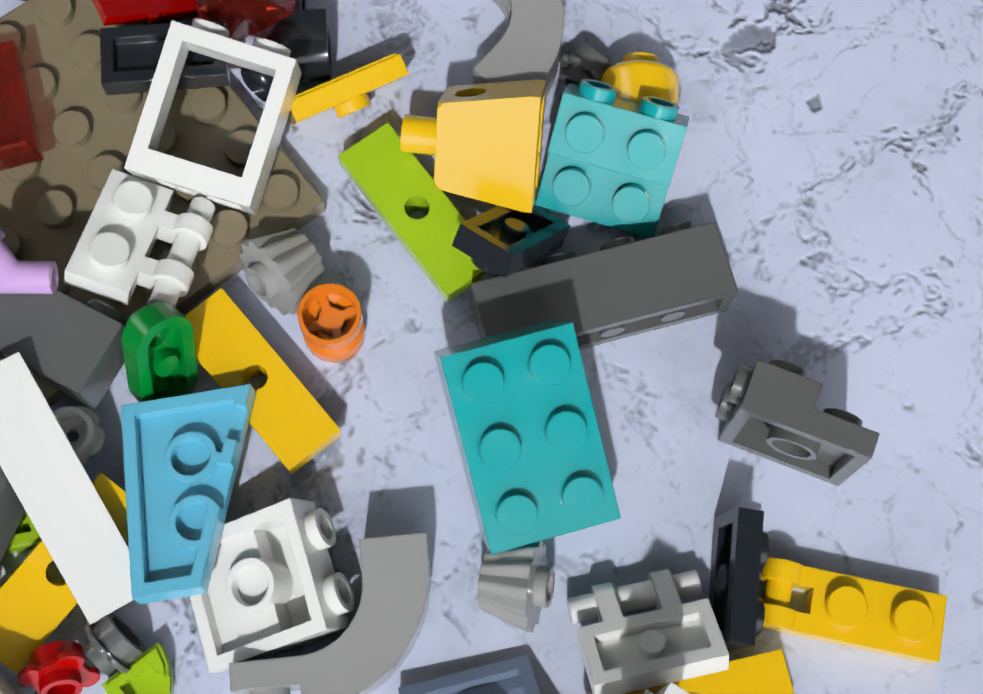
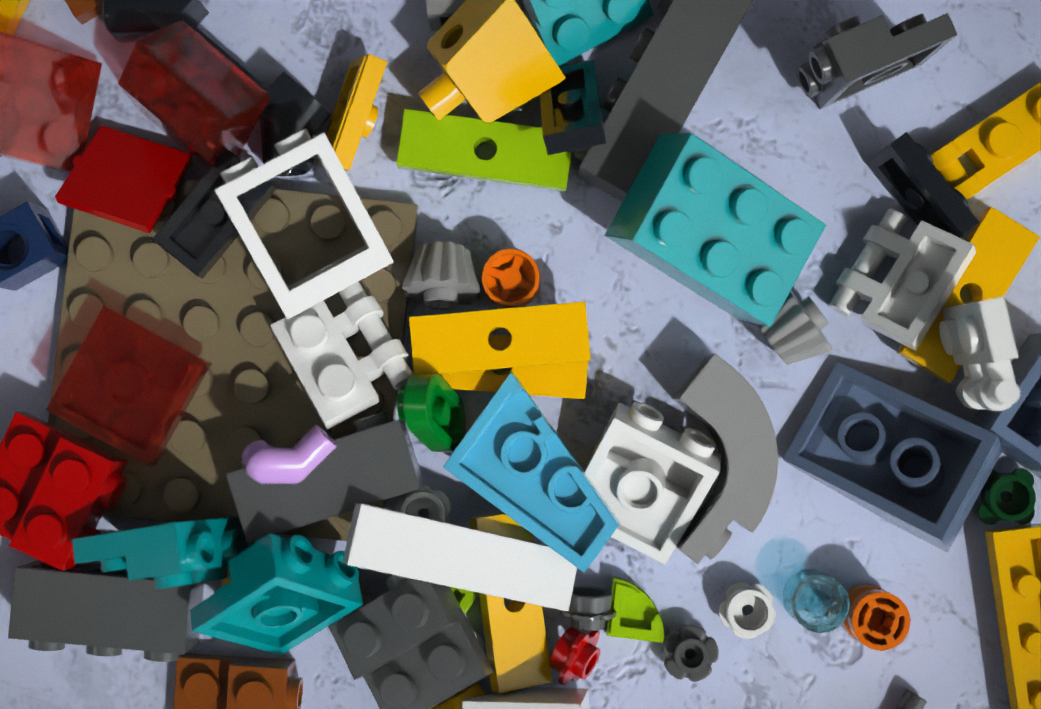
camera: 40 degrees left, 15 degrees up
(244, 326) = (462, 339): none -> yellow tile

